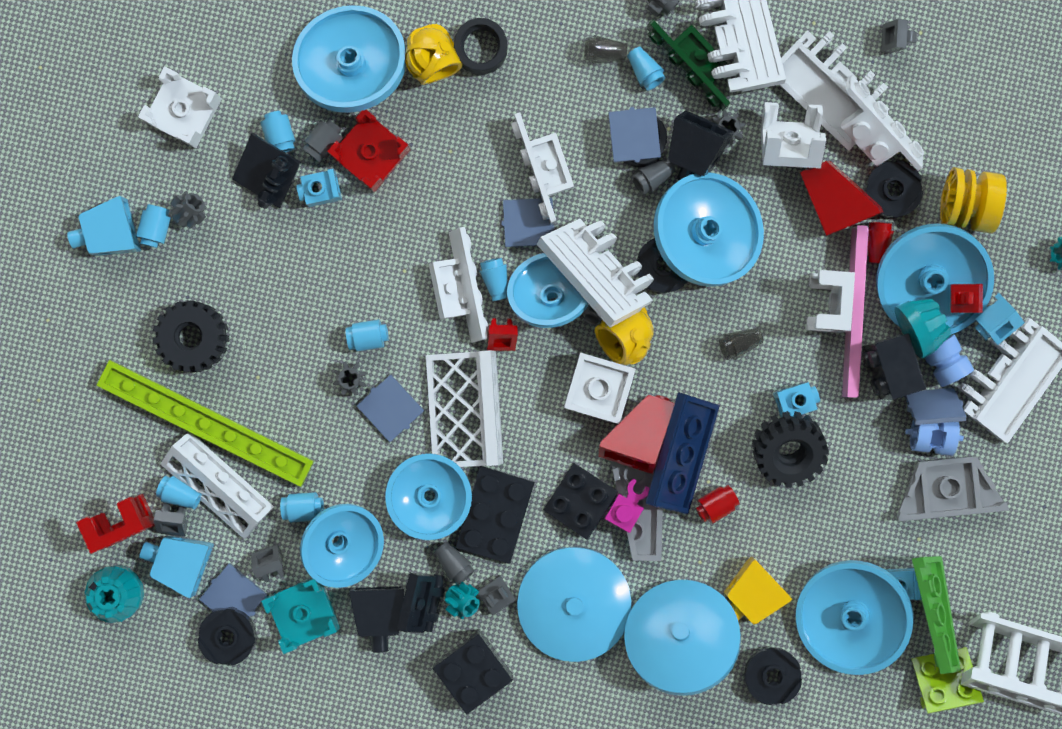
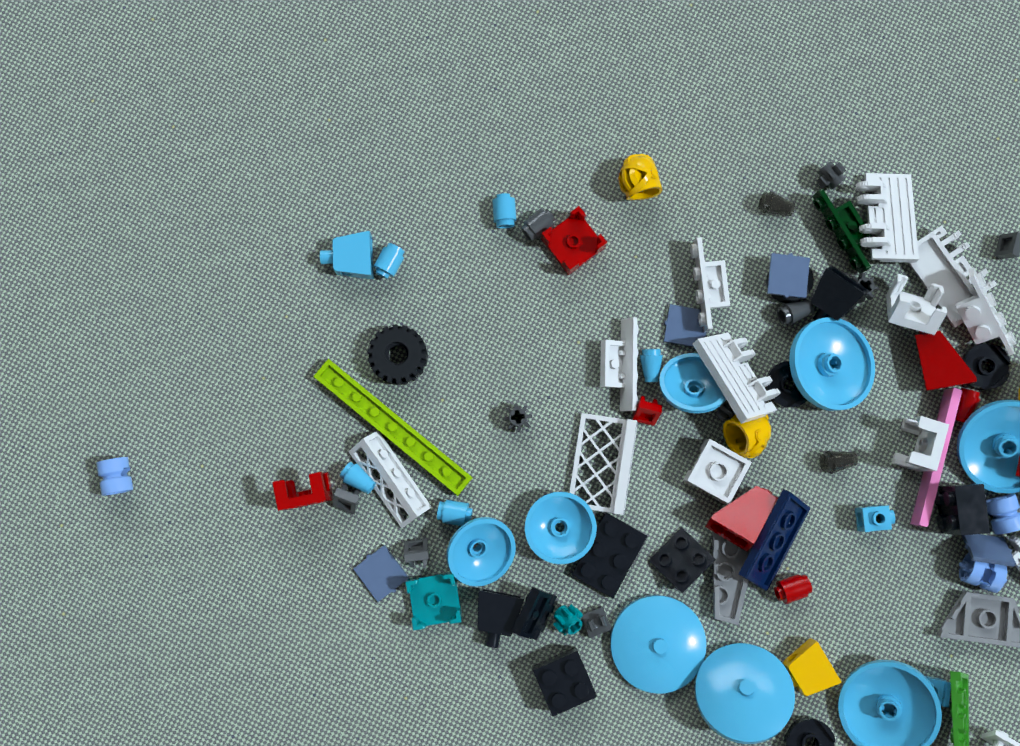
camera: 15 degrees right, 5 degrees down
(114, 593) = (285, 548): teal piece -> none
(178, 563) = (344, 534): medium azure torso -> none
(181, 108) = (432, 175): white panel -> none
(188, 209) = (419, 254): dark grey gear -> none
(225, 652) = (364, 617): black plate -> none
(266, 171) = (488, 238): black hinge -> none
(330, 188) = (534, 267): medium azure brick -> none
(349, 59) = (574, 166): medium azure dish -> none
(366, 335) = (538, 386): medium azure brick -> none
(390, 408) = (543, 449): sand blue piece -> none
(454, 563) = (567, 587): dark grey cone -> none
(491, 27) = (689, 166): black tyre -> none
(625, 510) = (718, 576): dark pink plate -> none
(646, 69) = (806, 227): medium azure cone -> none
(794, 466) = (869, 570): black tyre -> none
(923, 324) = (997, 479): teal piece -> none

